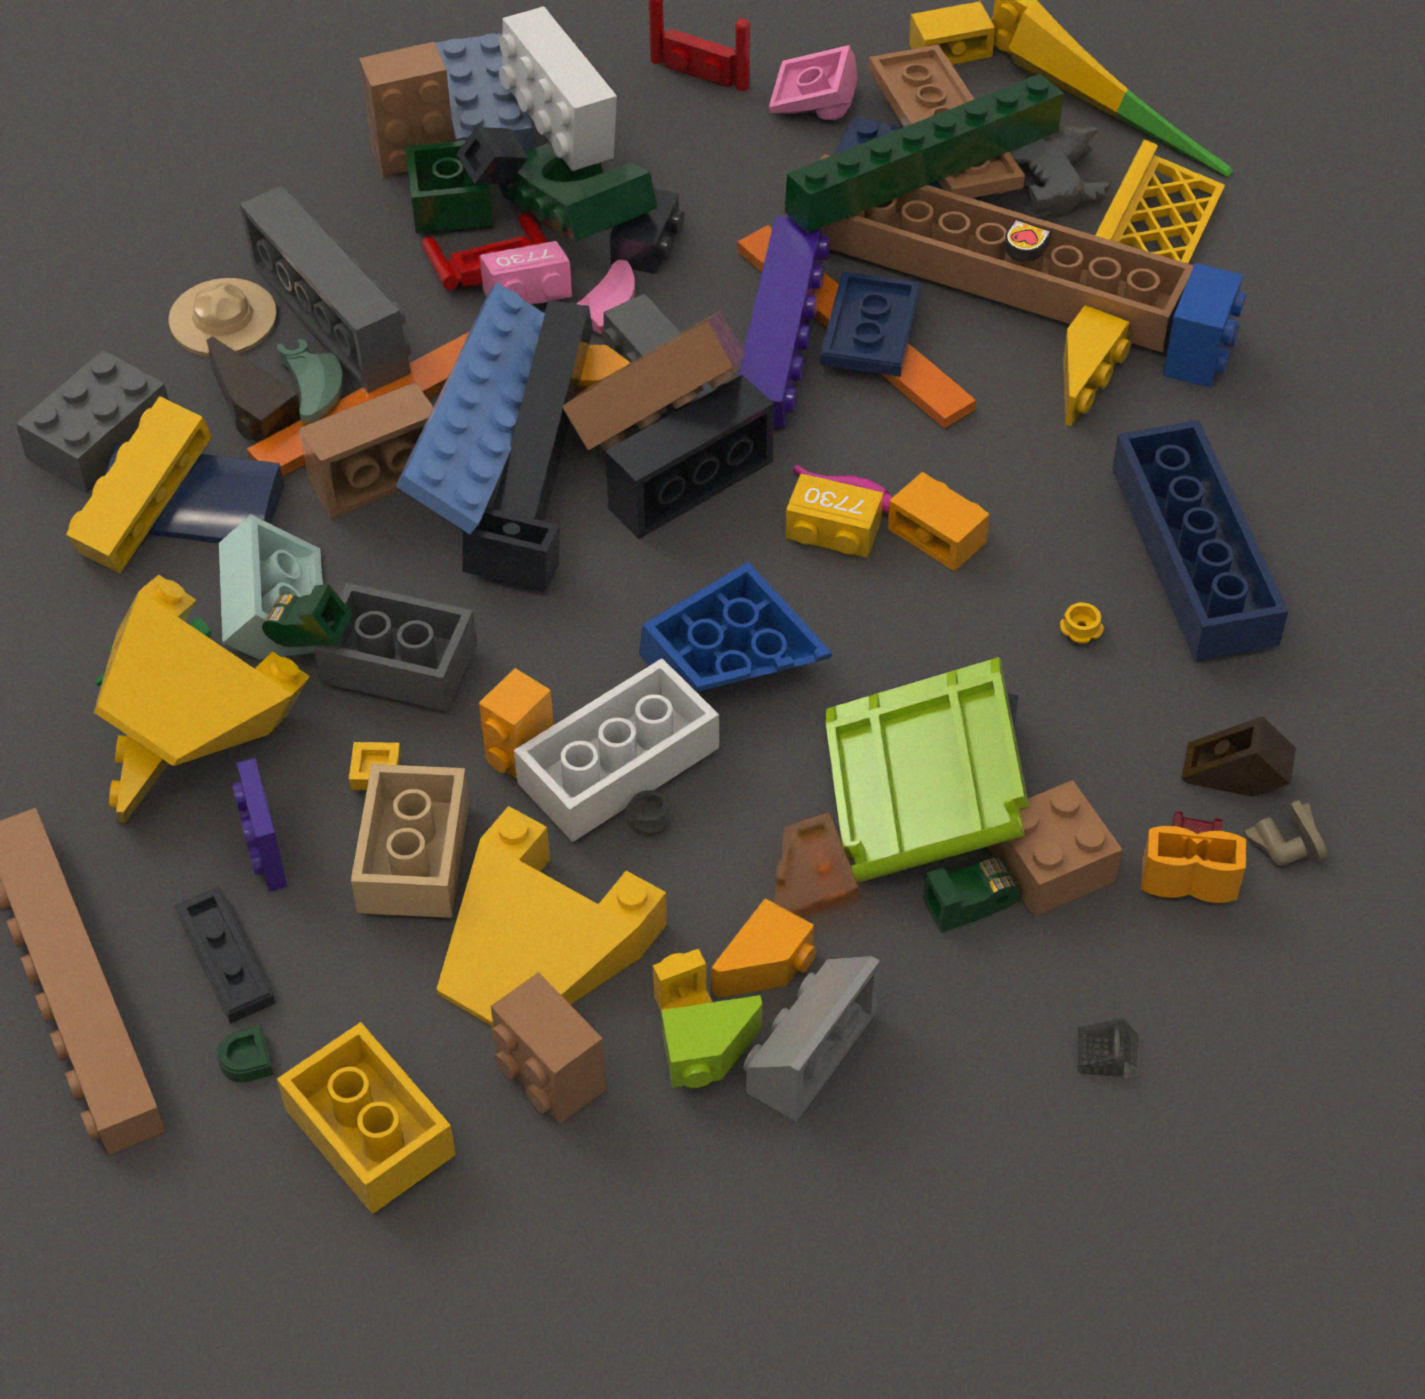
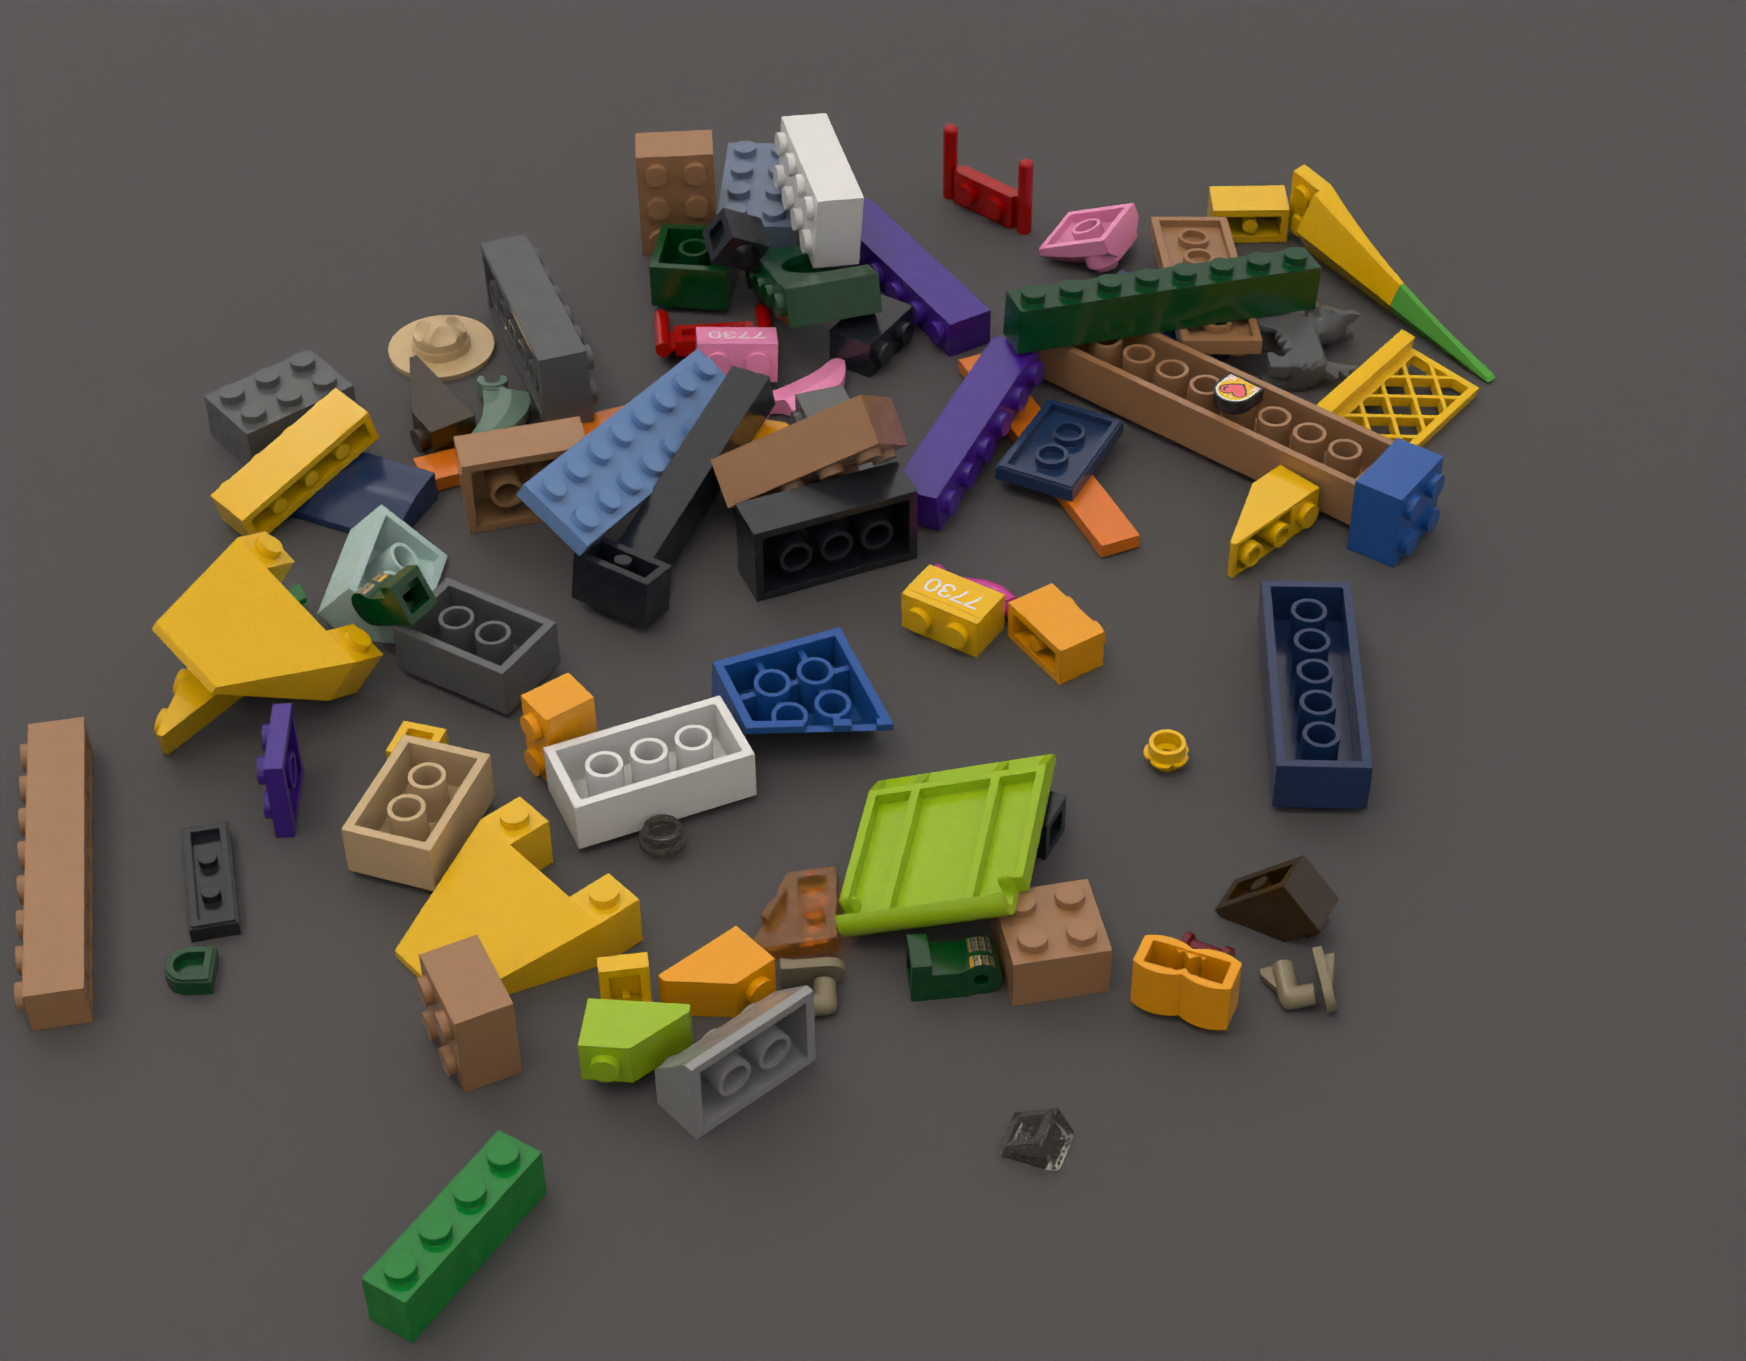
camera: 15 degrees right, 10 degrees down
(366, 1117) = (275, 1040): yellow brick -> none
(618, 1283) = (454, 1236): none -> green brick
(705, 186) = (911, 275): none -> dark purple brick
(854, 926) = (817, 972): none -> dark tan piece

